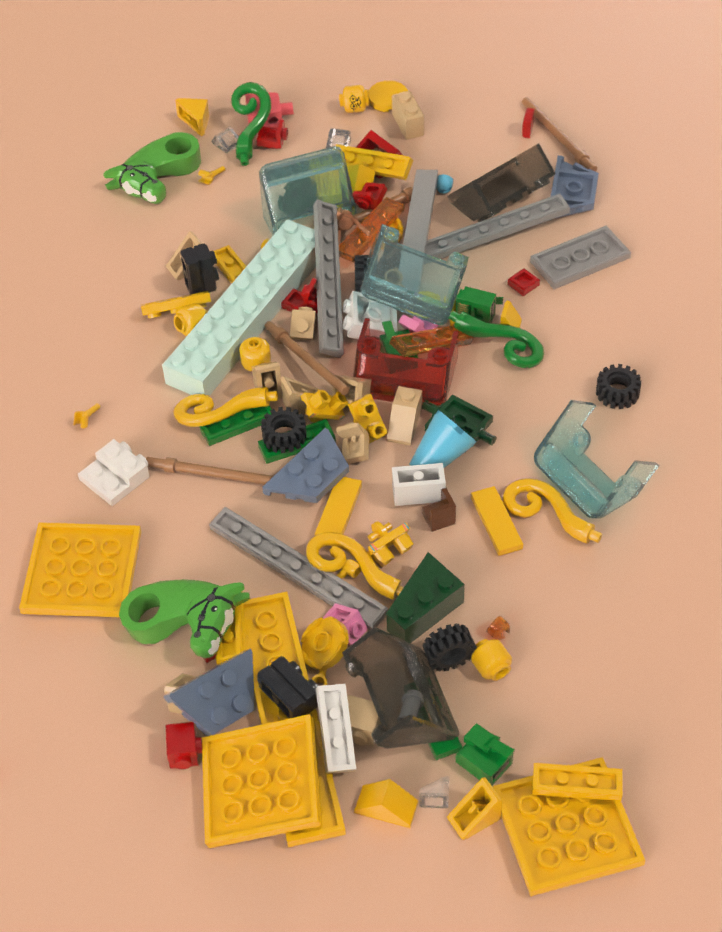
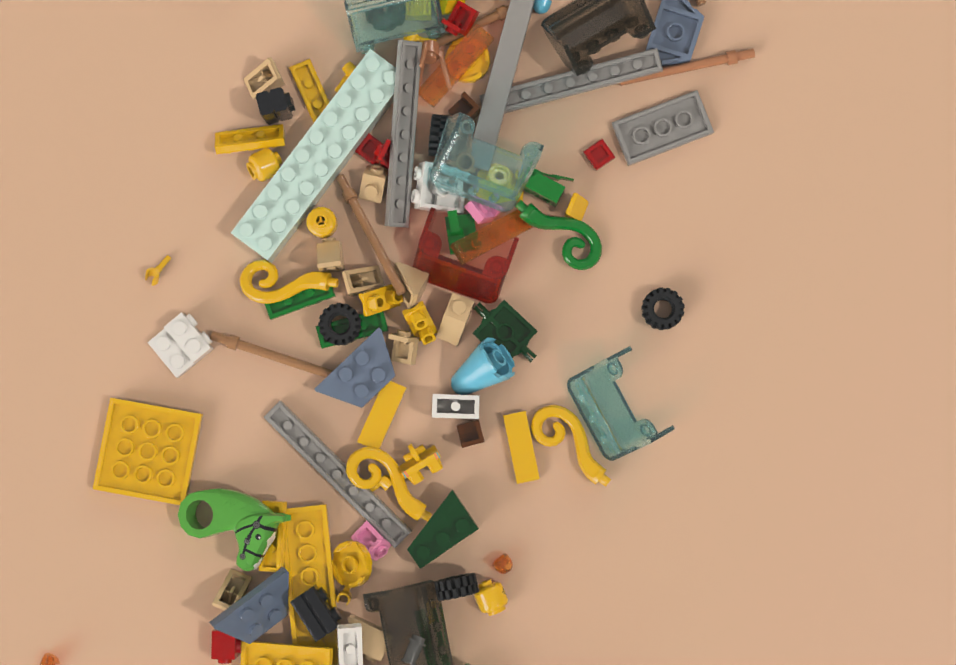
camera: 10 degrees right, 35 degrees up
(630, 201) = (730, 57): none -> nougat bar

